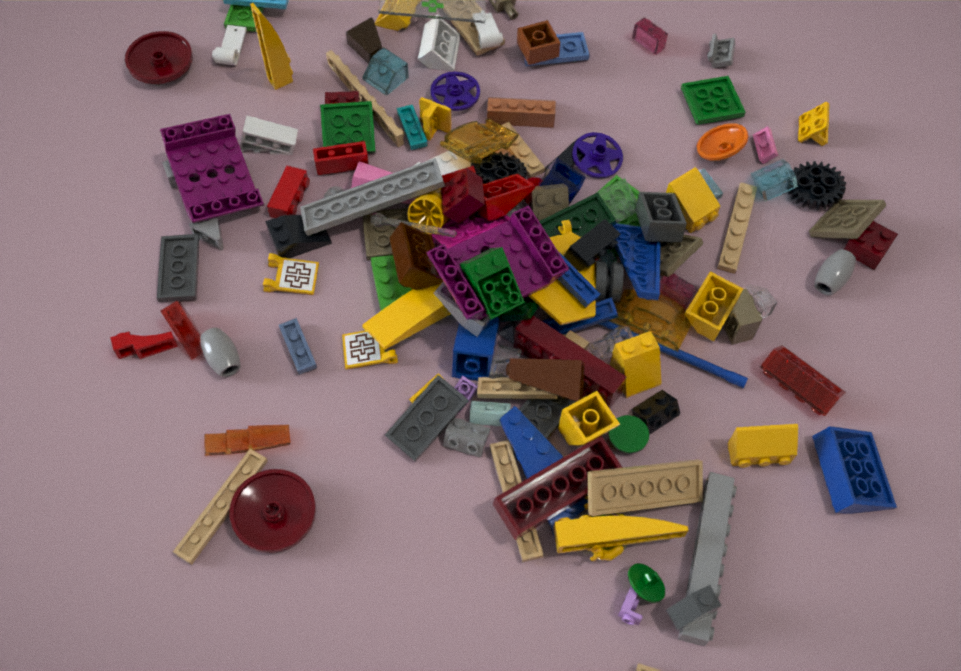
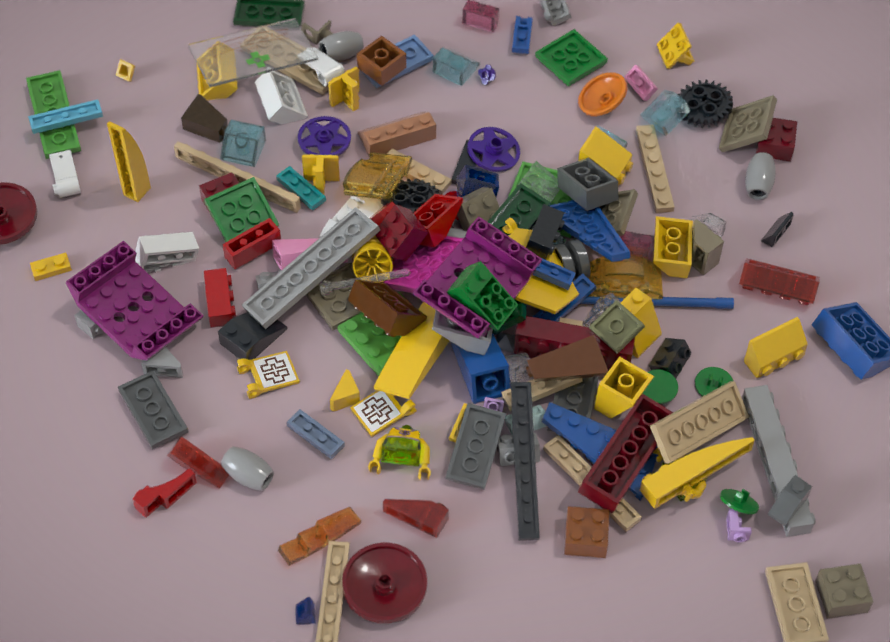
camera: 25 degrees left, 5 degrees down
(174, 115) = (50, 266): none -> yellow plate
(195, 505) = (305, 611): none -> clear blue slope
(343, 319) = (345, 394): none -> yellow slope
(345, 460) = (421, 514): none -> clear red slope
(361, 391) = (402, 447): none -> torso
(460, 452) = (524, 461): none -> black plate
(483, 546) = (586, 532): none -> dark orange brick
(495, 55) = (345, 89): none -> yellow bracket
(512, 17) = (341, 45): none -> light grey piece
(603, 70) = (454, 65): none -> clear light blue slope
(610, 361) = (616, 326): none -> olive tile
(628, 88) = (491, 74): none -> plate
(678, 65) = (522, 35): none -> blue plate
(686, 448) = (711, 379): none -> green piece
(827, 330) = (778, 229): none -> black slope

